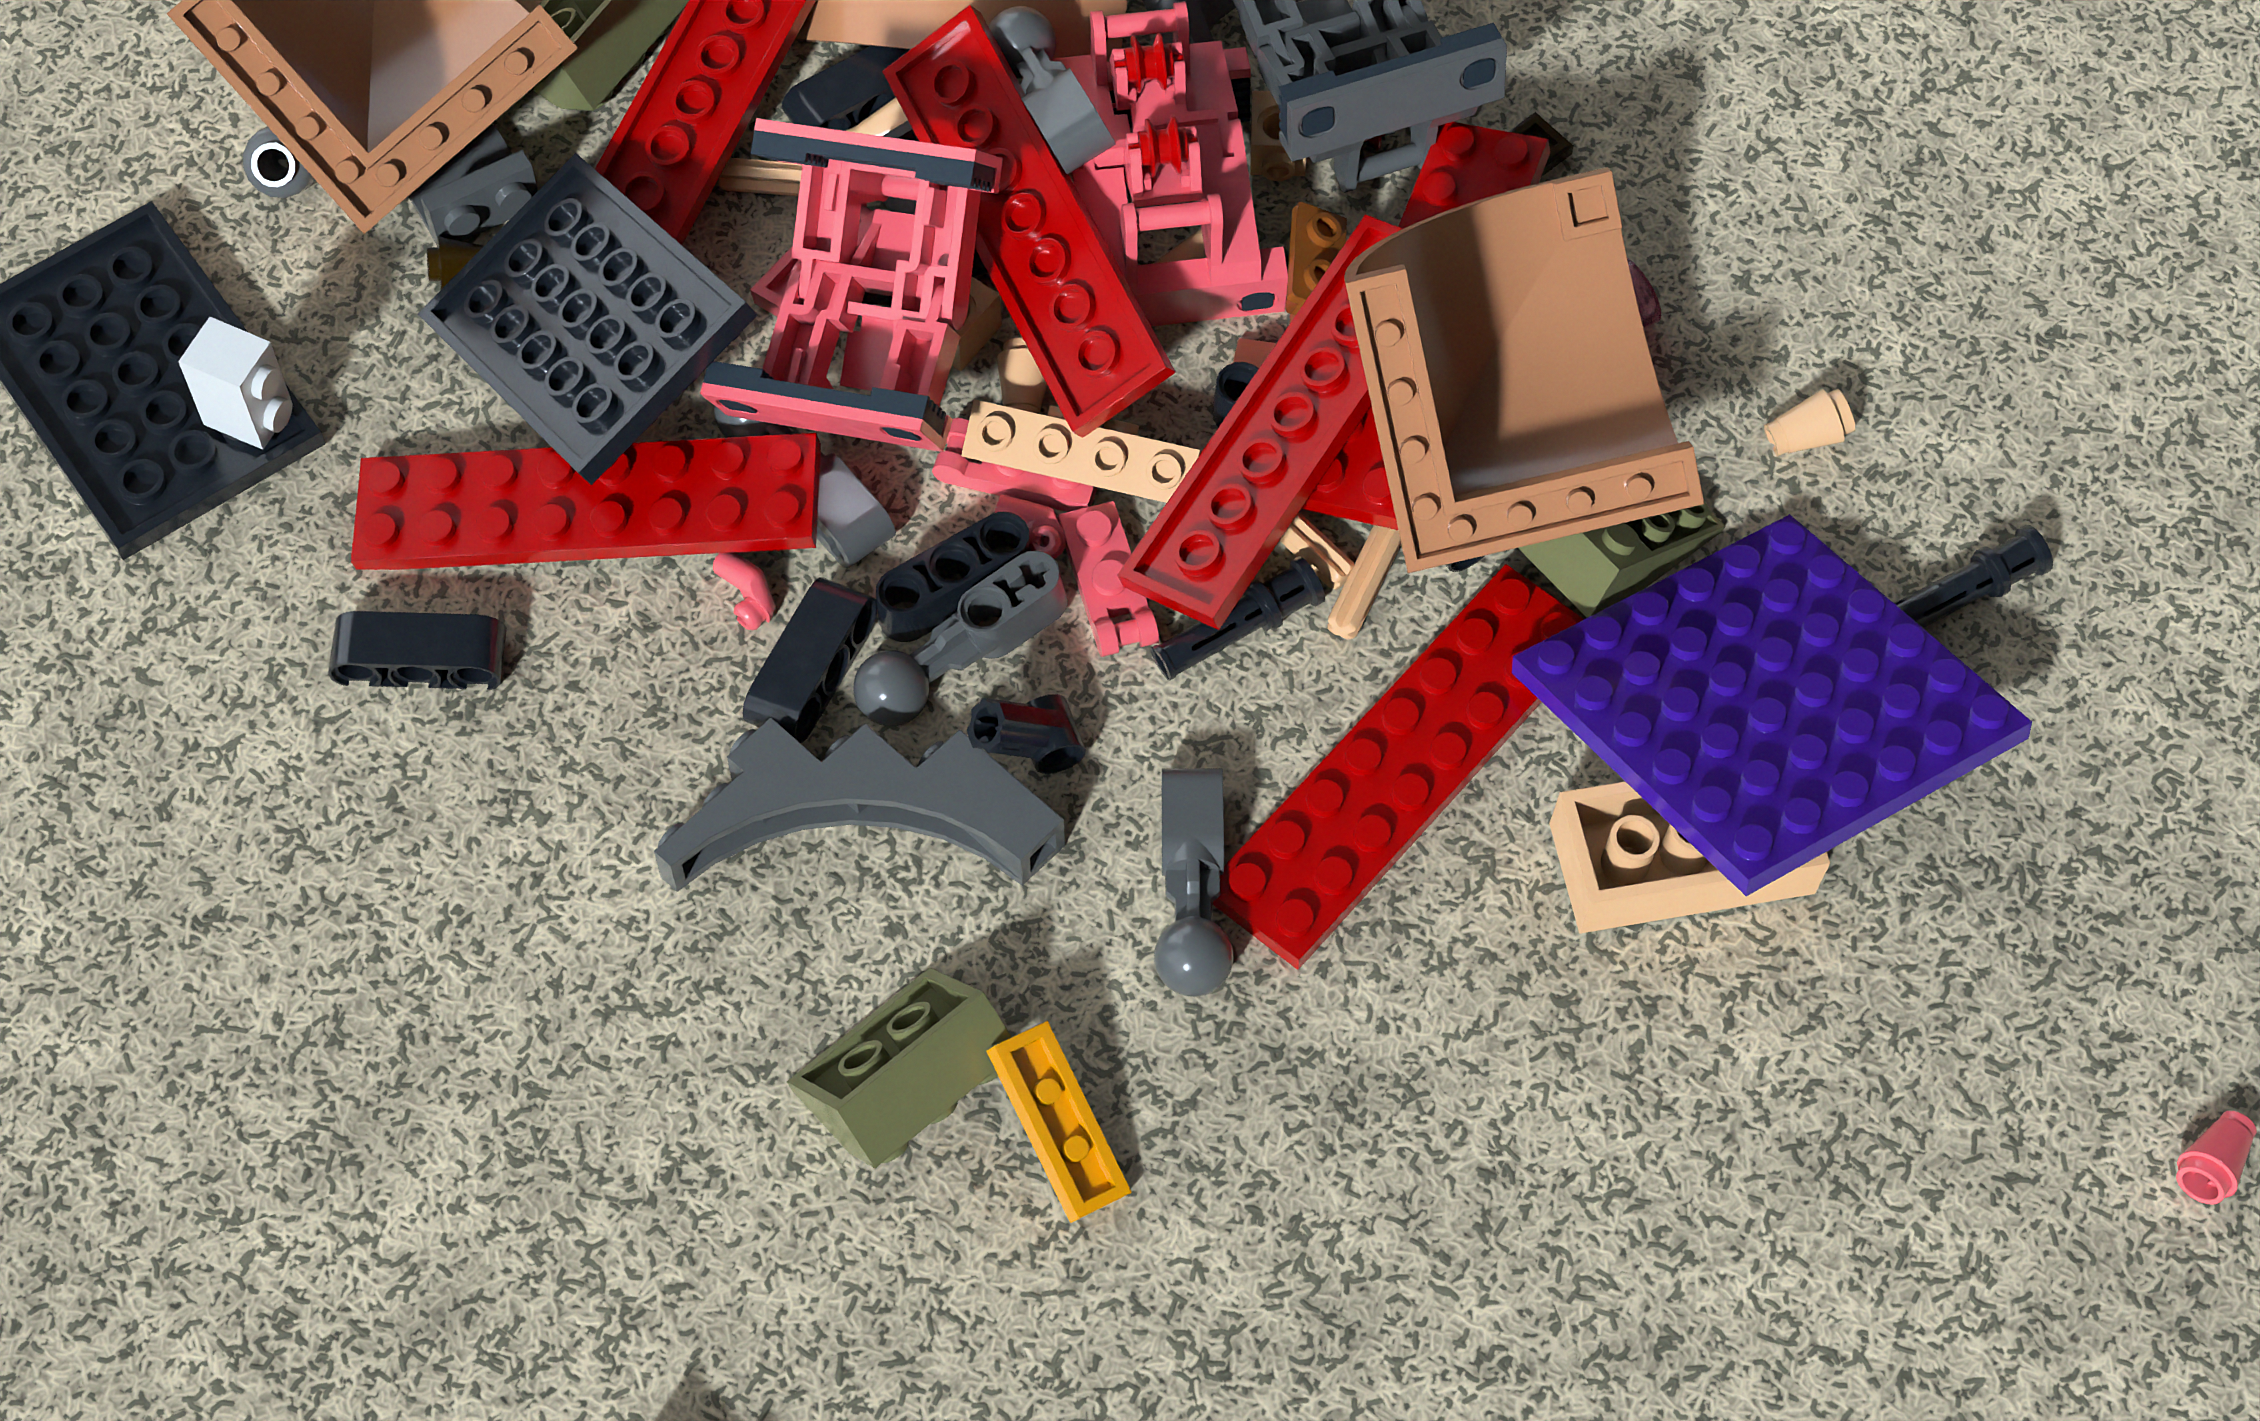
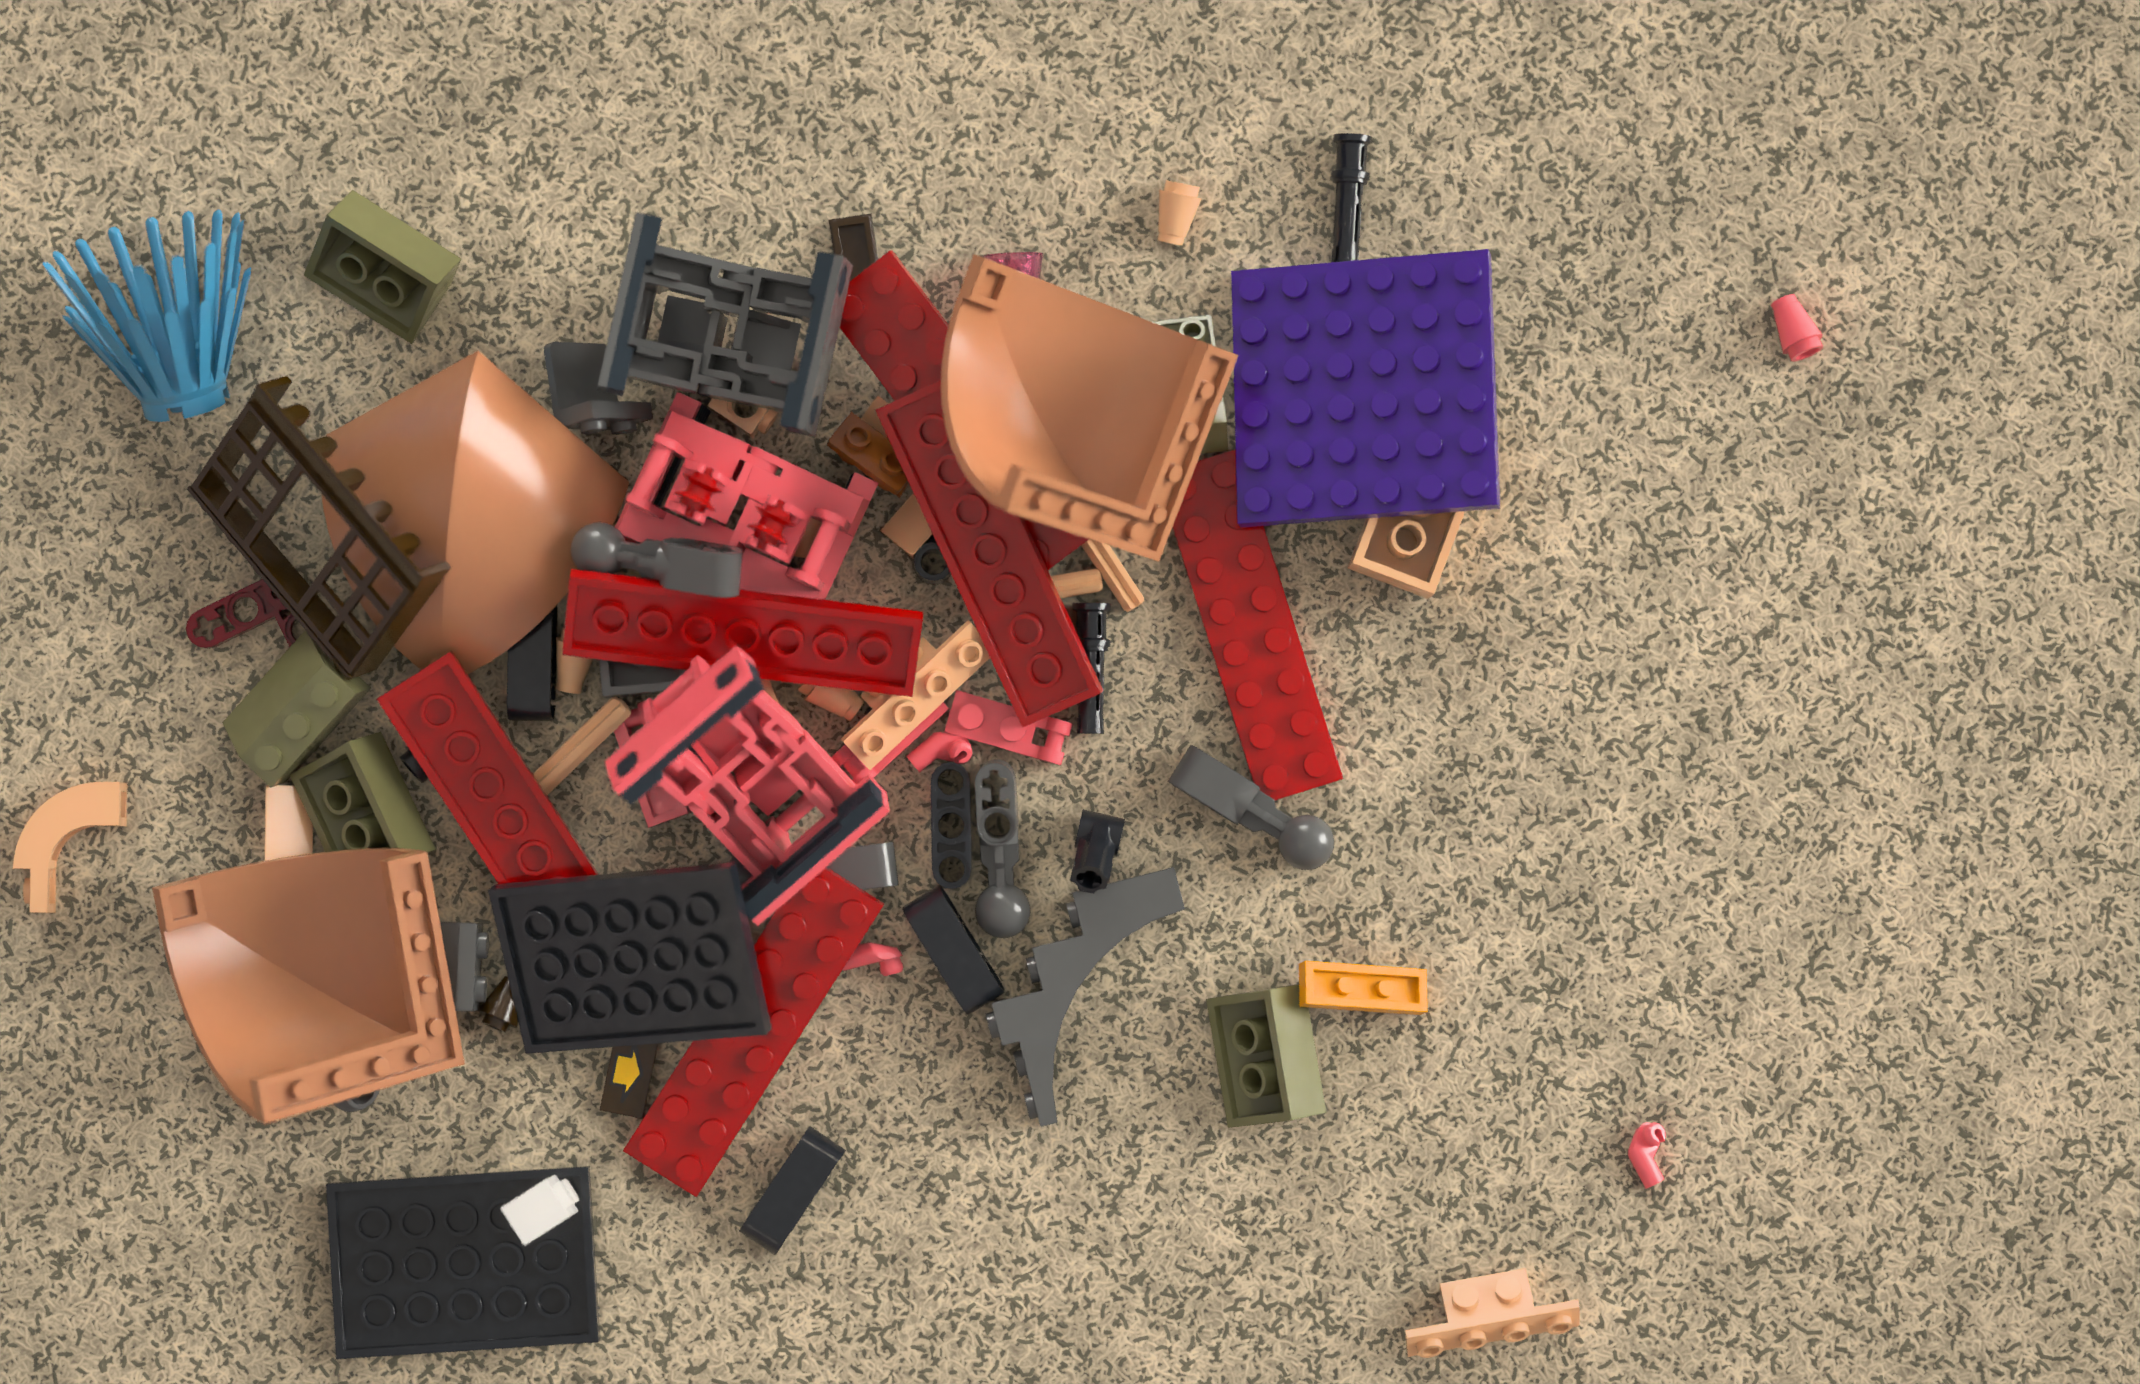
camera: 60 degrees left, 25 degrees up
(460, 423) = (629, 1079): none -> dark brown tile

